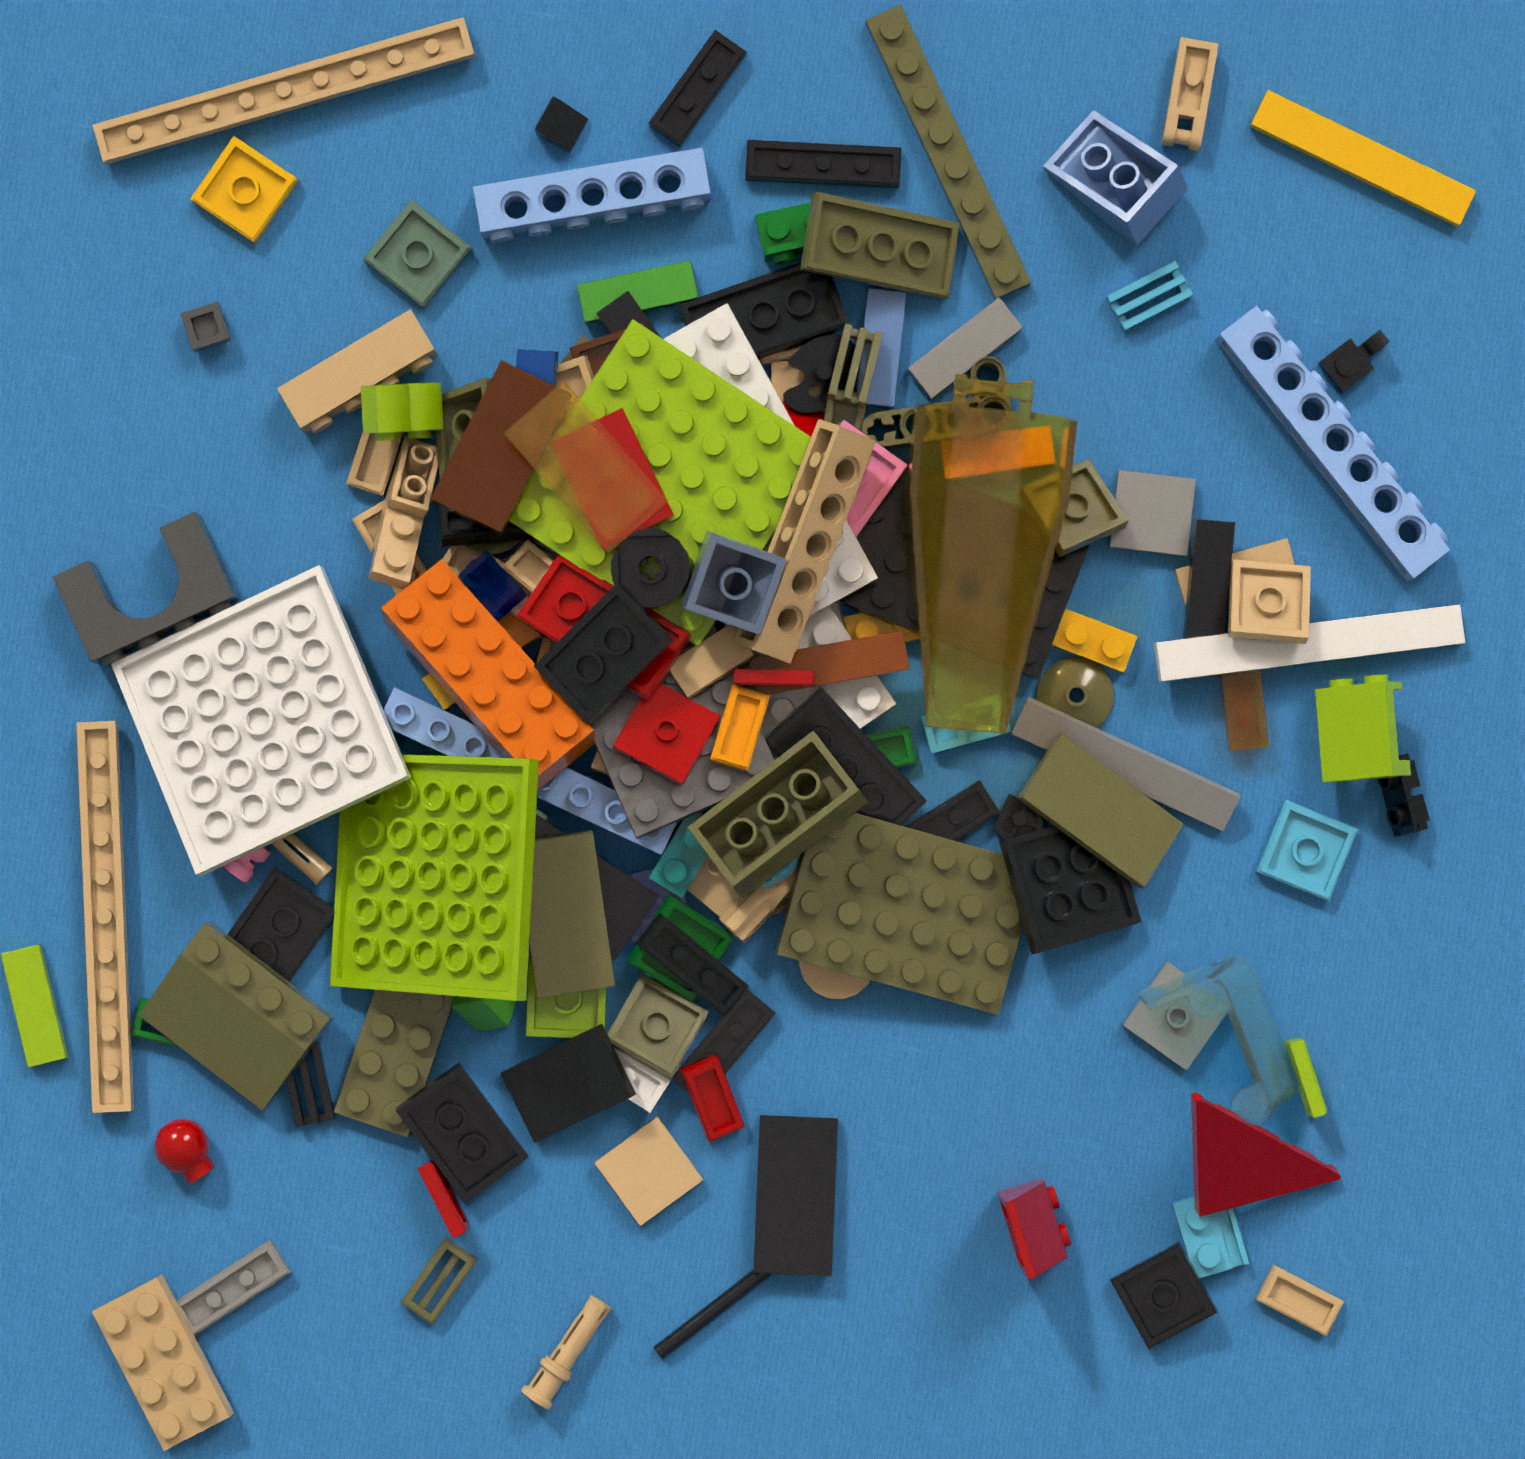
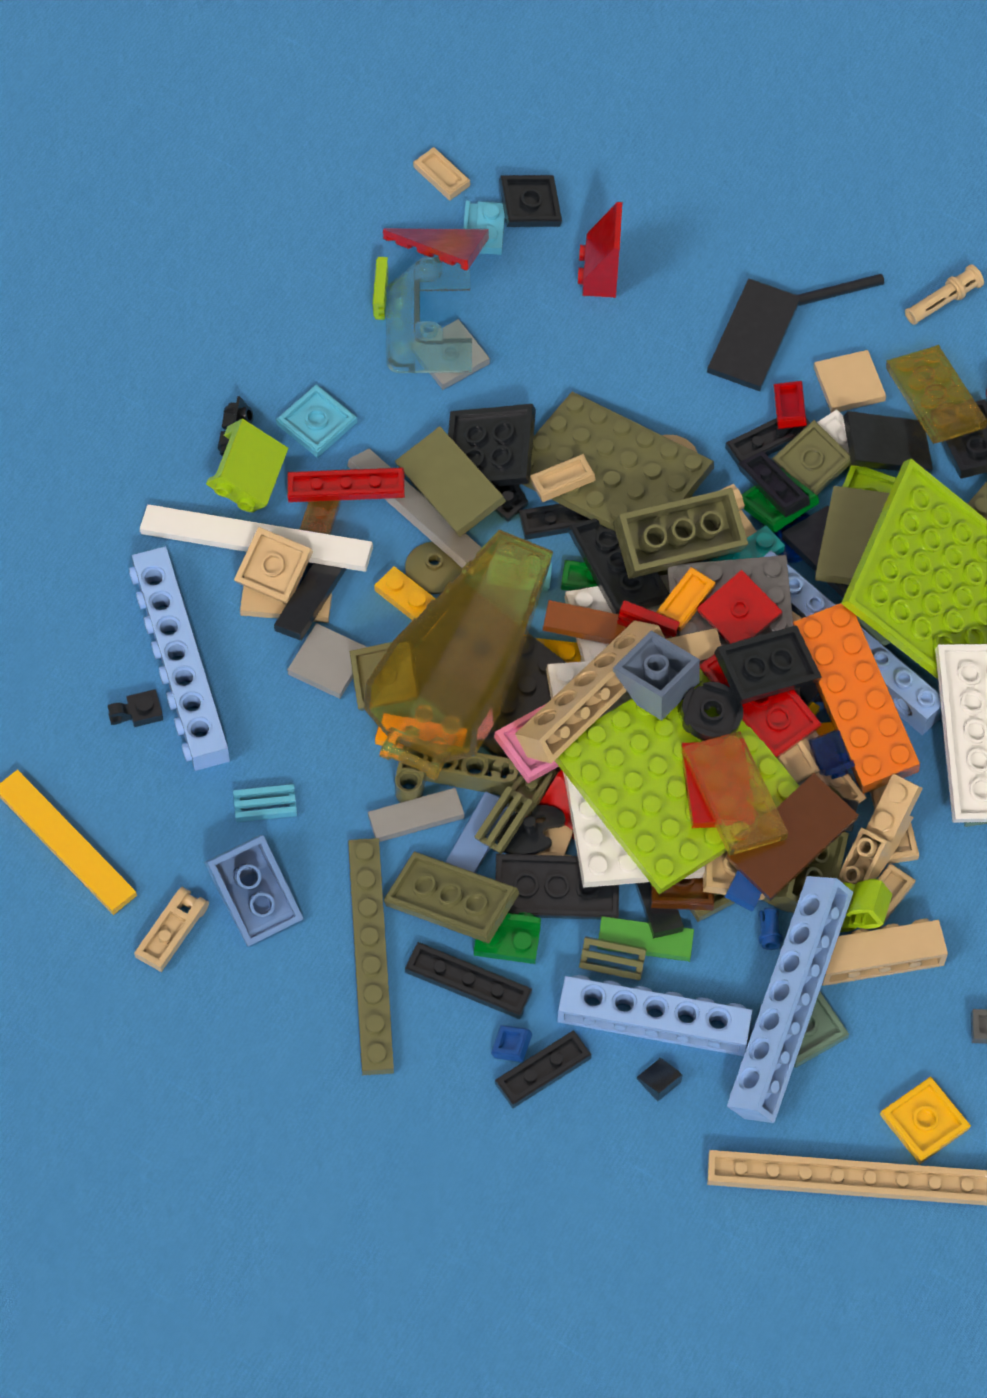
camera: 160 degrees left, 25 degrees down
(440, 258) = (790, 999): none -> light blue brick
(494, 350) = (770, 934): none -> blue pin
(529, 1185) = (936, 394): none -> clear yellow plate
(663, 244) = (584, 964): none -> olive tile
(743, 102) = (511, 1043): none -> blue tile
(959, 862) = (562, 478): none -> tan tile
(1227, 755) = (346, 485): none -> red tile

